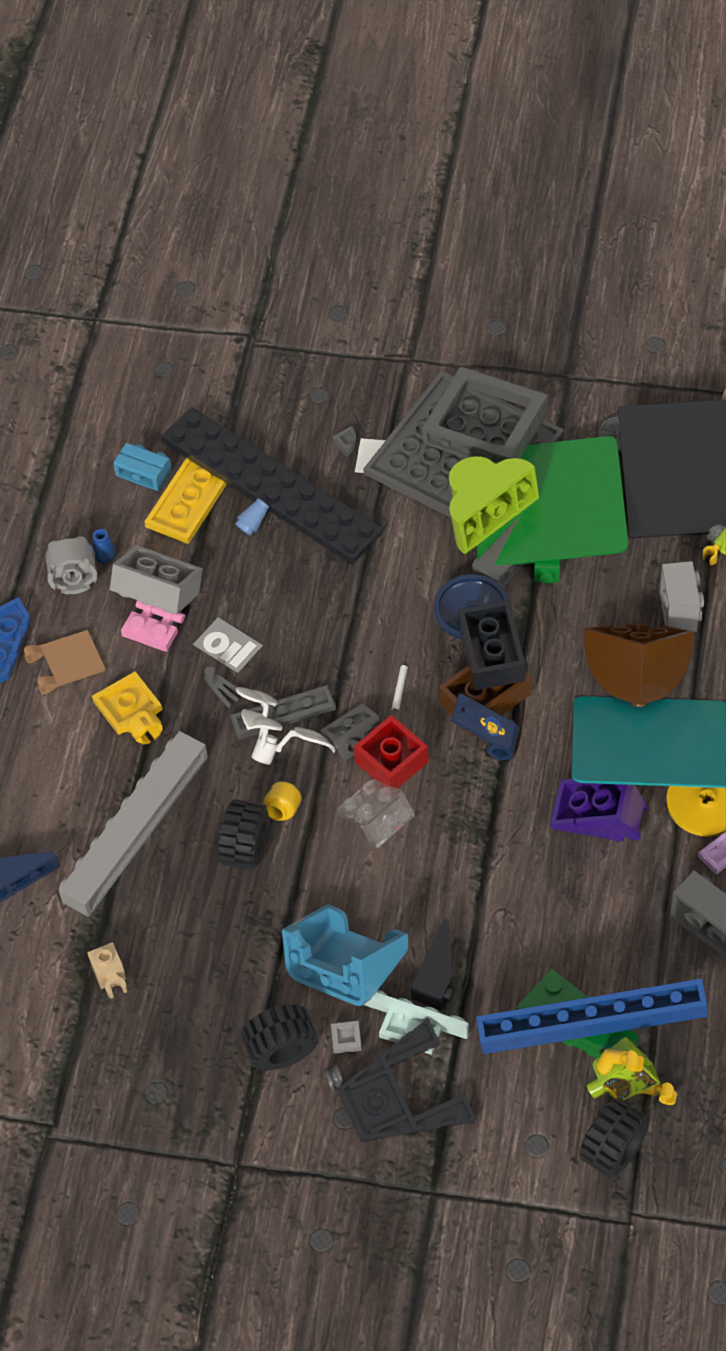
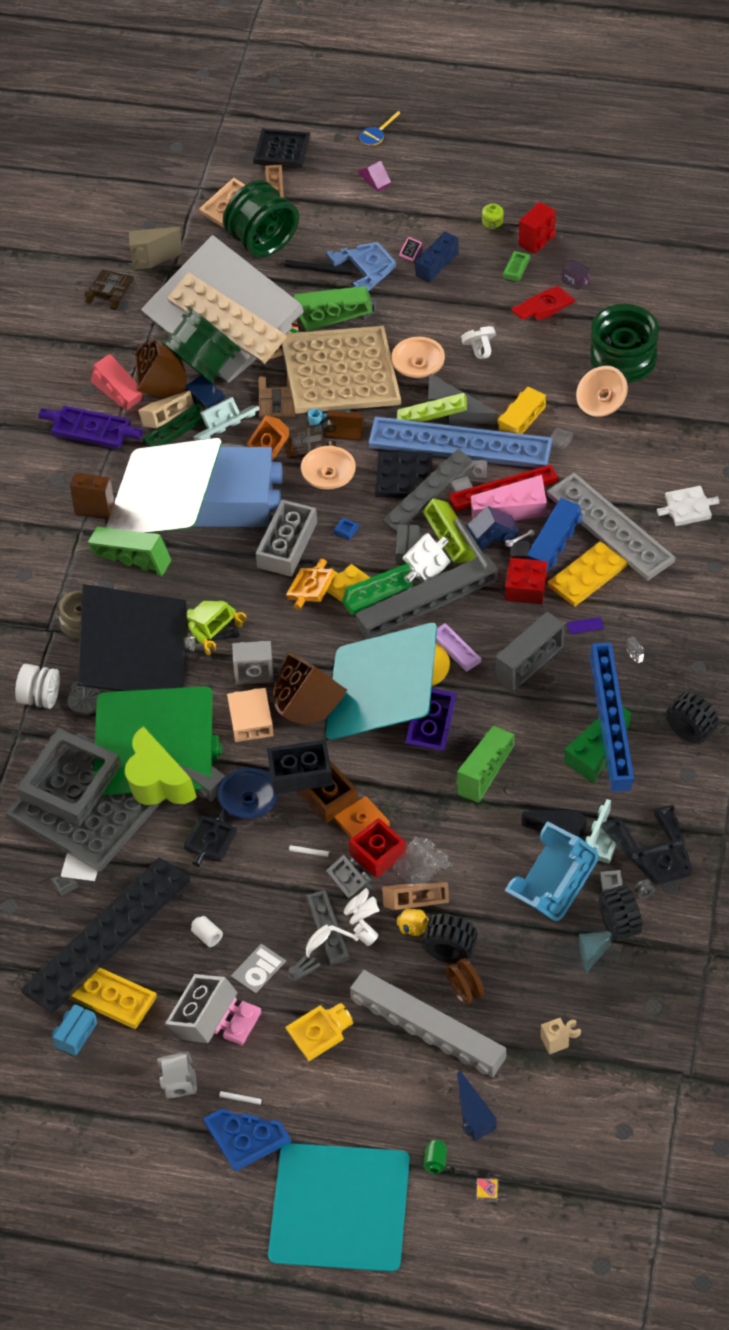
camera: 90 degrees left, 5 degrees down
(54, 630) = (240, 1098): none -> white piece
(67, 659) = (265, 1080): medium nougat flag -> none
(103, 546) = (155, 1051): blue cone -> none
(182, 856) = (464, 981): none -> reddish brown wheel
(234, 1007) = (592, 947): none -> clear light blue slope
(252, 517) = (141, 948): medium blue cone -> none
(273, 583) = (206, 931): none -> white brick
(320, 799) = (415, 895): none -> medium nougat slope
(409, 578) = (210, 838): none -> black plate
(446, 742) = (359, 816): none -> orange plate
(488, 725) = (362, 781): dark blue door -> none
(532, 875) = (484, 763): none -> bright green wedge
(603, 603) = (250, 714): none -> light nougat brick
(625, 376) = (37, 686): none -> white wheel
(628, 1072) = (641, 710): torso -> none

